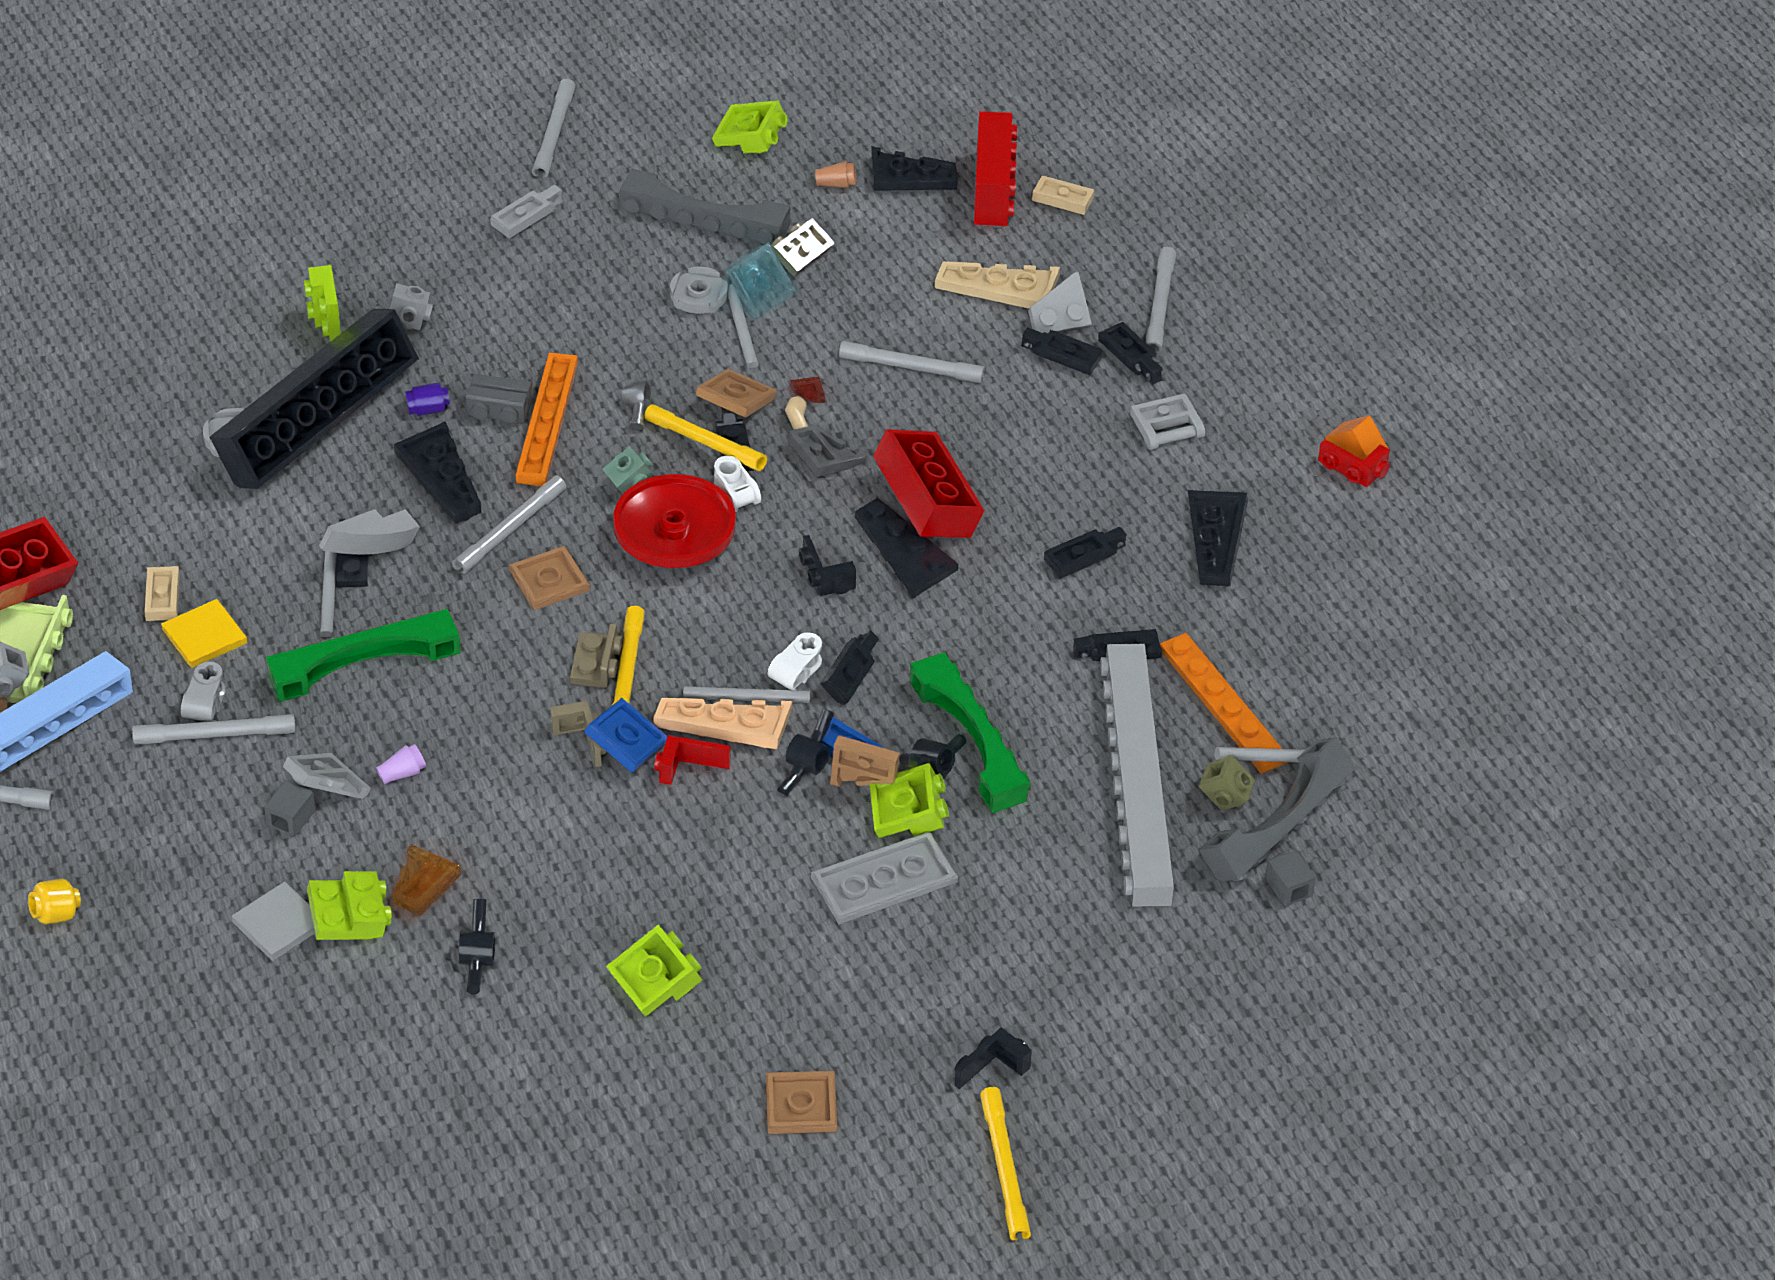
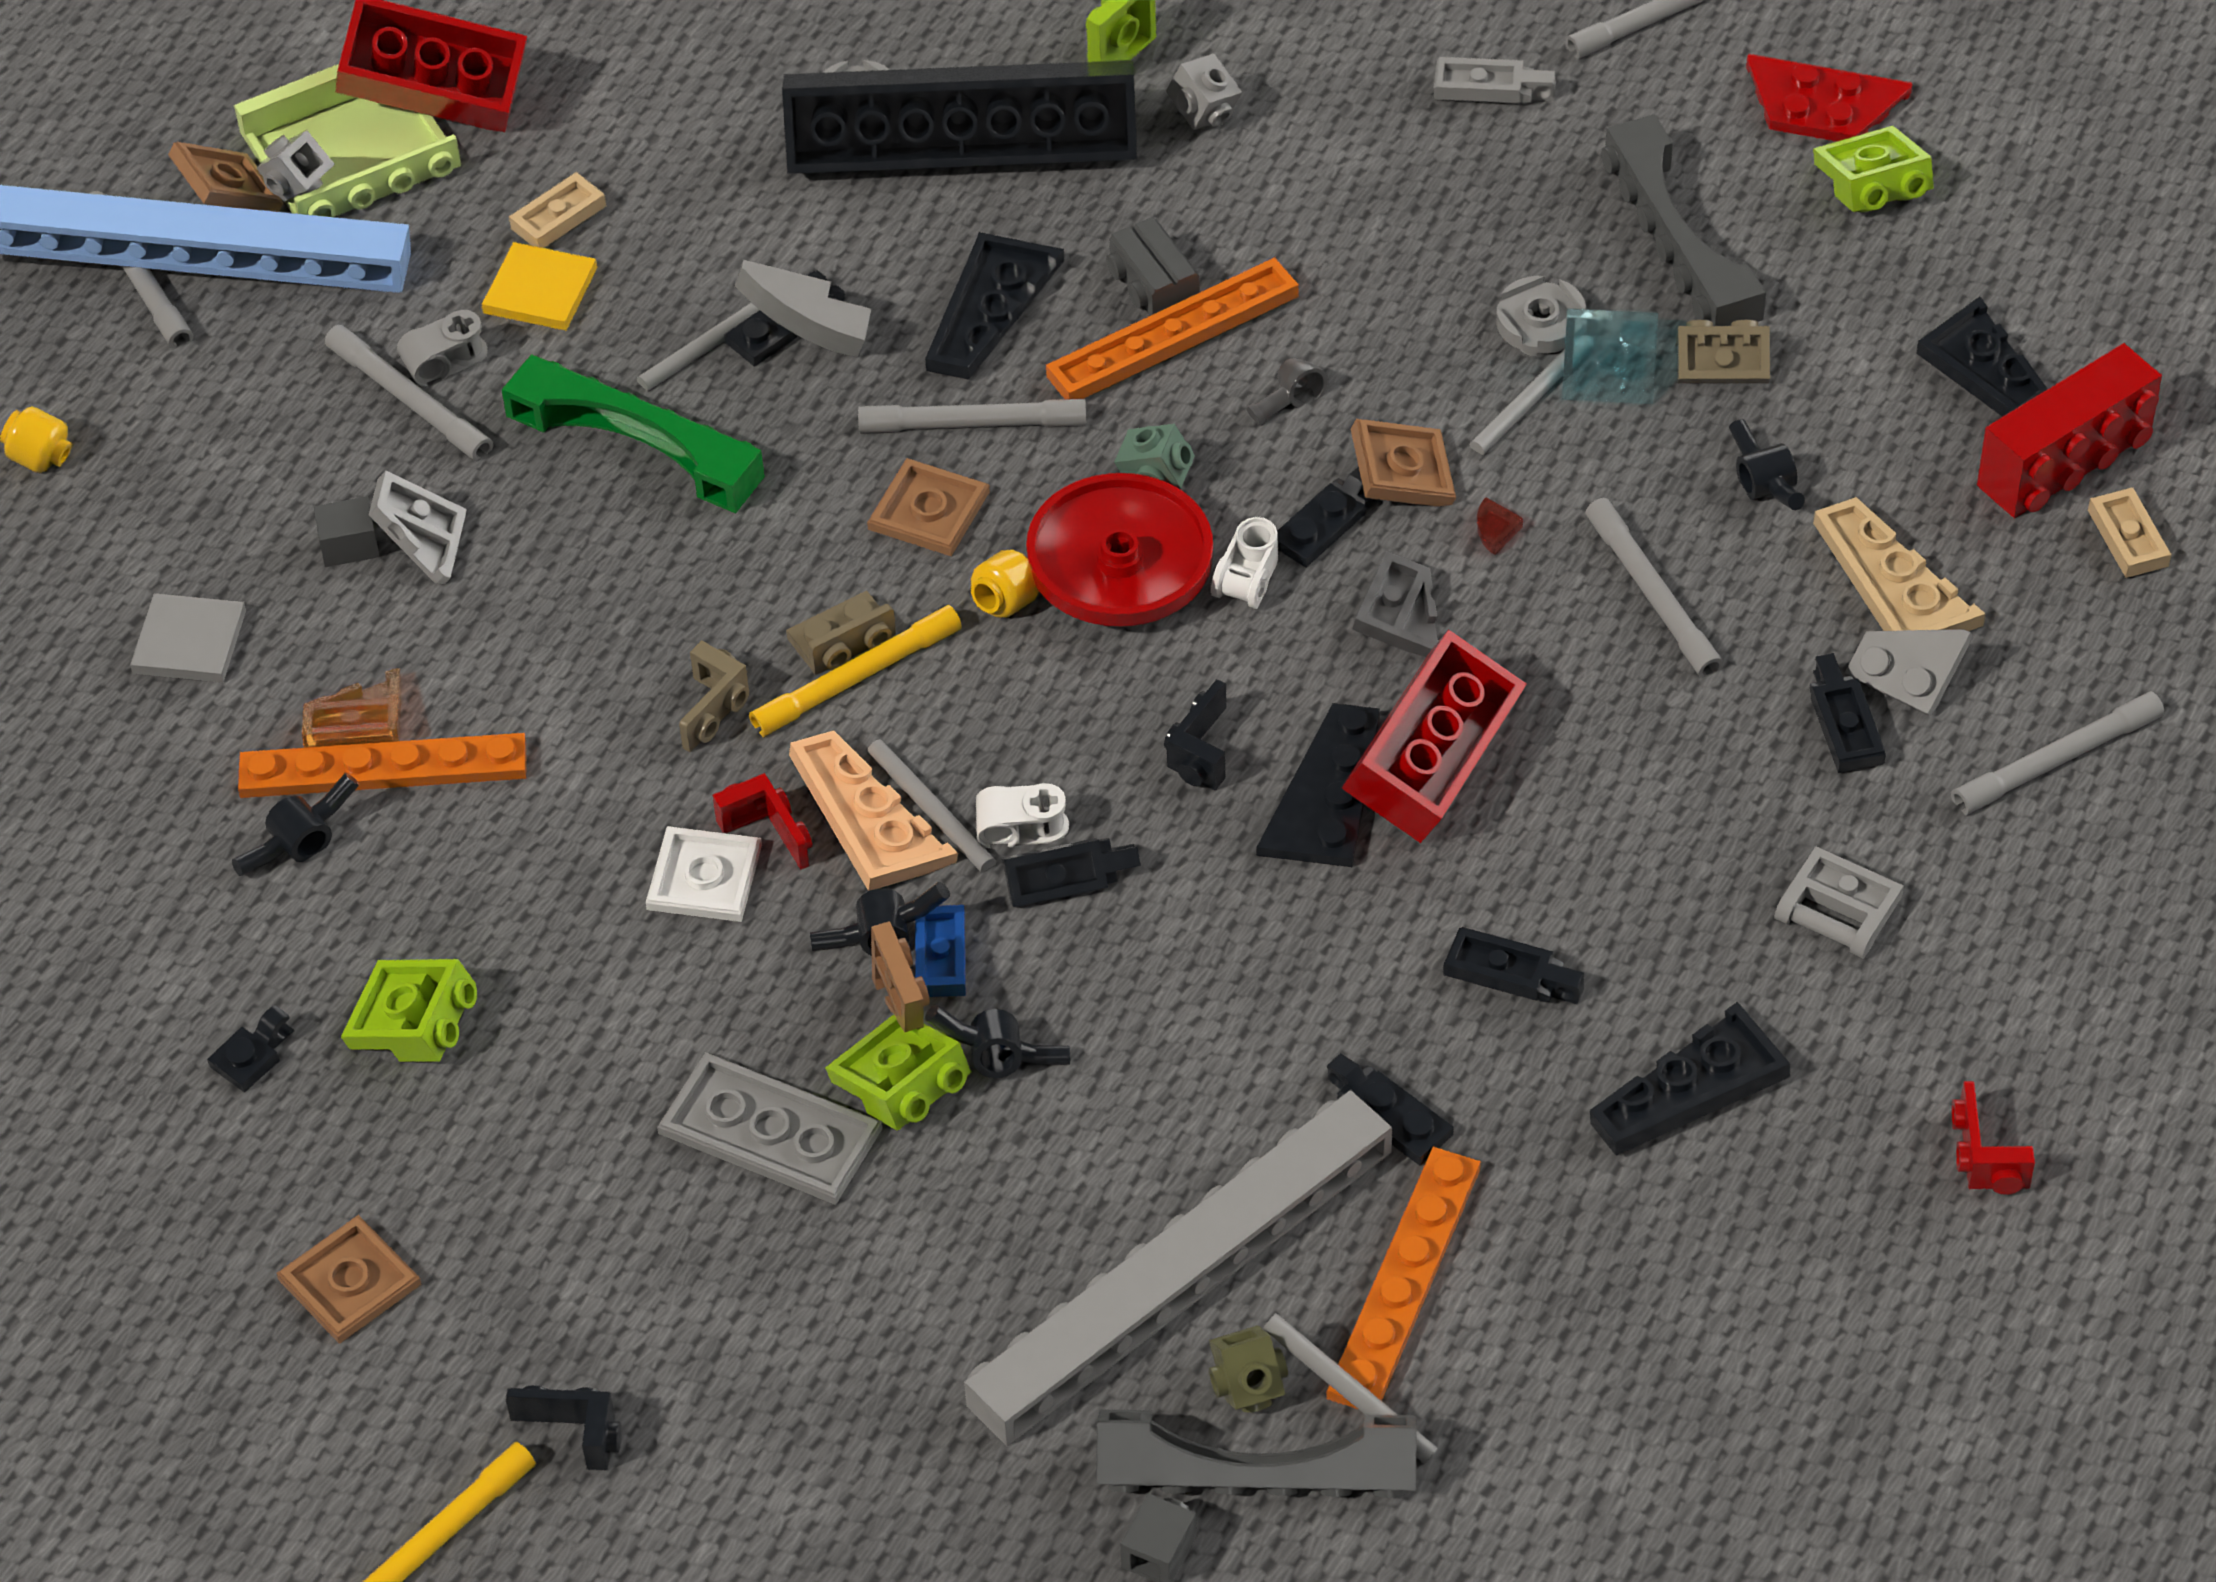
camera: 55 degrees right, 5 degrees up
(349, 906) = (252, 679): lime plate -> none
(402, 764) = (508, 579): lavender cone -> none
(427, 399) = (1085, 211): dark purple brick -> none
(474, 883) = (383, 764): none -> orange plate
(605, 1060) = (248, 1055): none -> black plate
(626, 735) = (735, 736): blue tile -> none
(641, 577) = (1003, 584): none -> yellow head
(668, 420) = (1291, 534): yellow piece -> none
(680, 117) = (1822, 99): none -> red wing
(691, 806) = (704, 874): none -> white tile
(795, 411) = (1434, 536): tan arm -> none
(837, 175) = (1894, 302): nougat cone -> none
(890, 278) = (1766, 469): none -> black piece
(940, 683) = (1027, 1137): green arch -> none
(1132, 351) = (1923, 784): black hinge -> none
(1357, 436) = (2039, 1121): orange slope -> none

